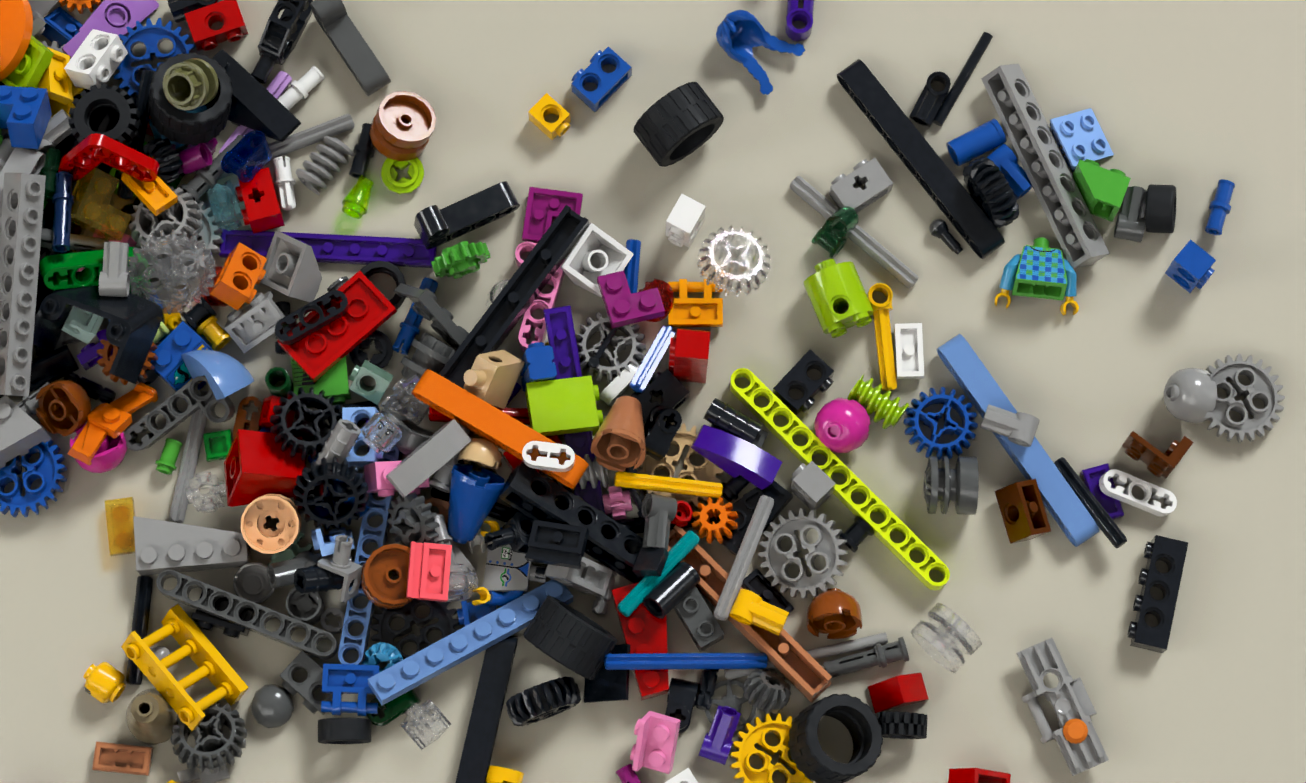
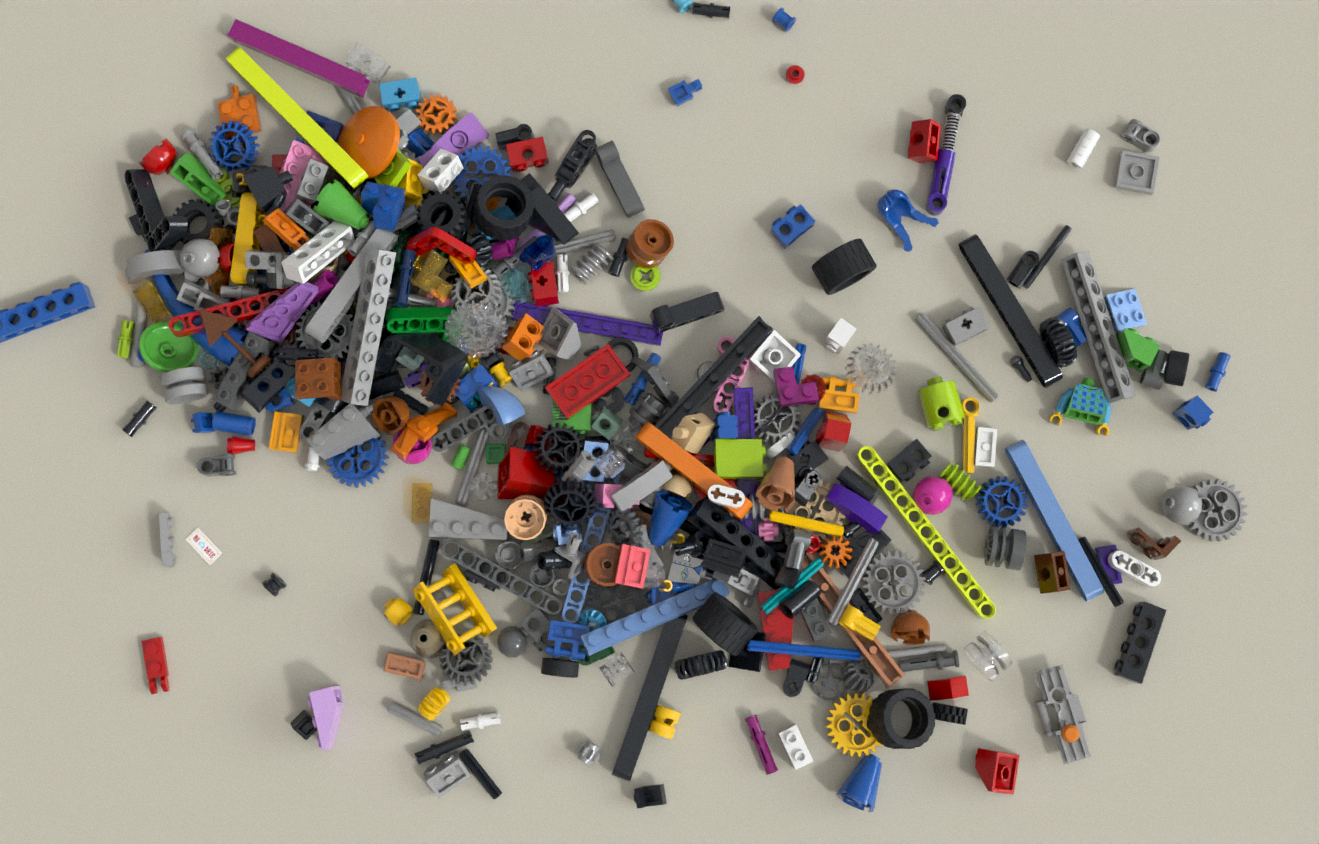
camera: 10 degrees right, 5 degrees up
(114, 278) = (436, 329): light grey piece -> none
(190, 84) = (505, 199): olive piece -> none
(277, 374) = (542, 409): dark green piece -> none
(290, 320) = (555, 374): black beam -> none
(357, 200) = (612, 291): clear neon green cone -> none
(460, 259) = (679, 344): bright green gear -> none
(543, 207) = (742, 312): magenta plate -> none
(547, 106) = (750, 241): yellow brick -> none
(655, 742) = (775, 703): bright pink bracket -> none
(718, 740) = (819, 706): dark purple piece -> none
(811, 485) = (906, 535): light grey brick -> none
(833, 233) = (943, 357): clear green piece -> none
(976, 142) = (1051, 304): blue pin -> none
(1018, 427) = (1055, 512): light grey piece -> none

